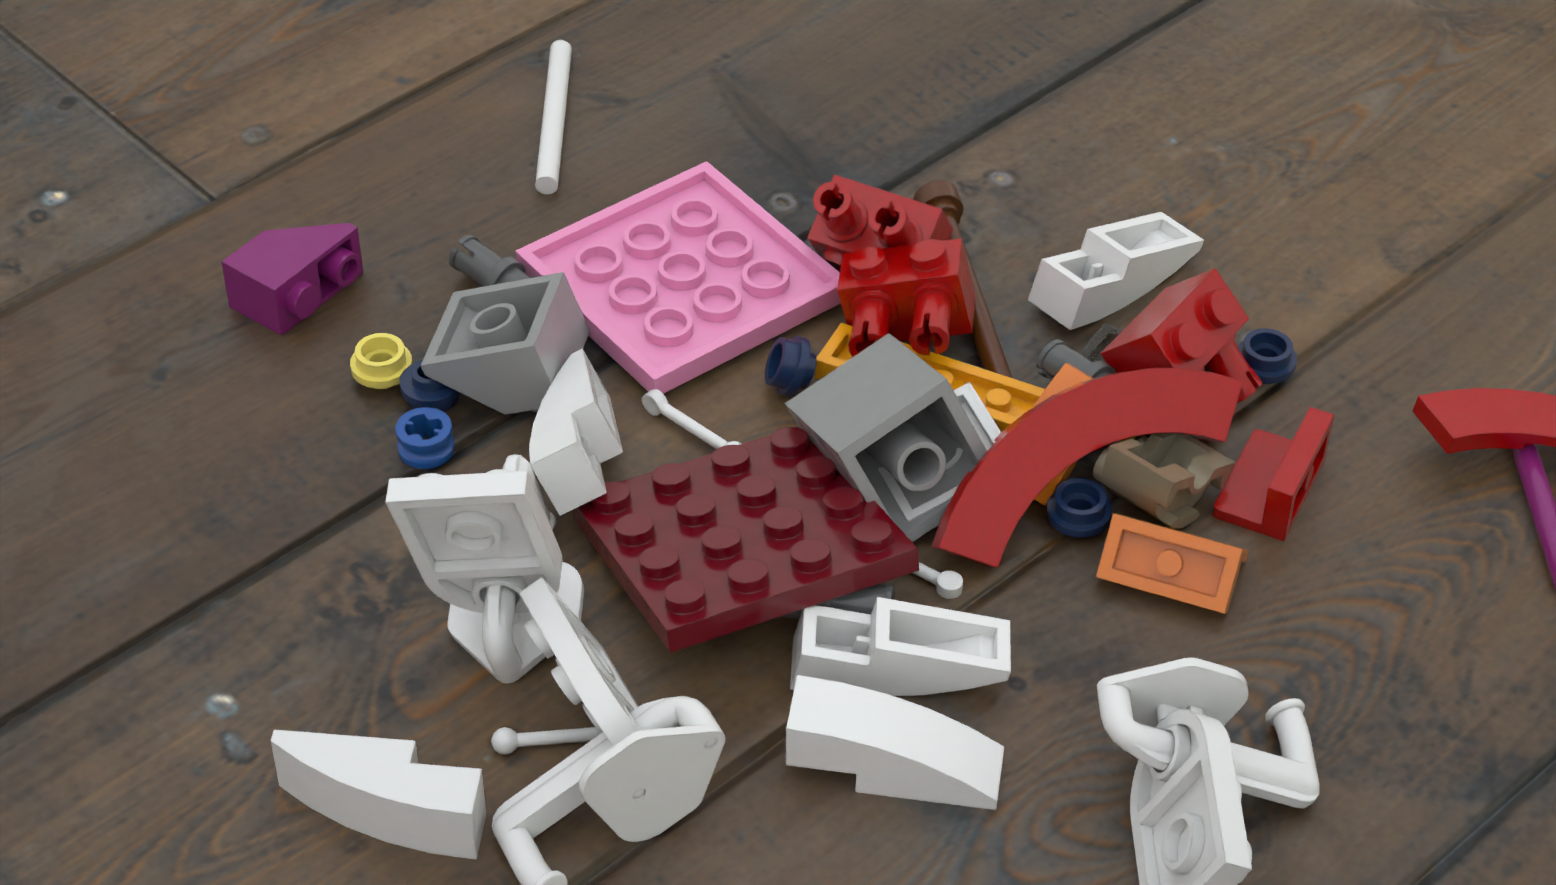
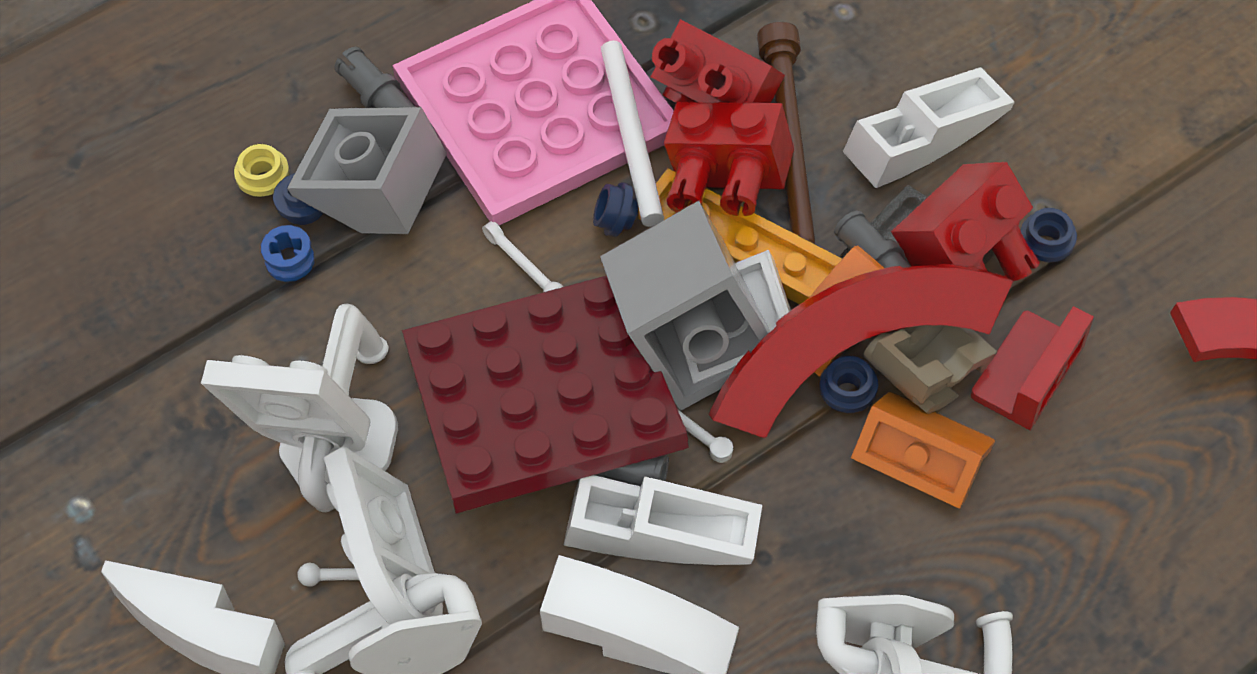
camera: 10 degrees right, 15 degrees up
(291, 272) = (197, 70): magenta slope -> none
(574, 435) = (411, 271): white slope -> none
(796, 289) = (632, 134): none -> white bar

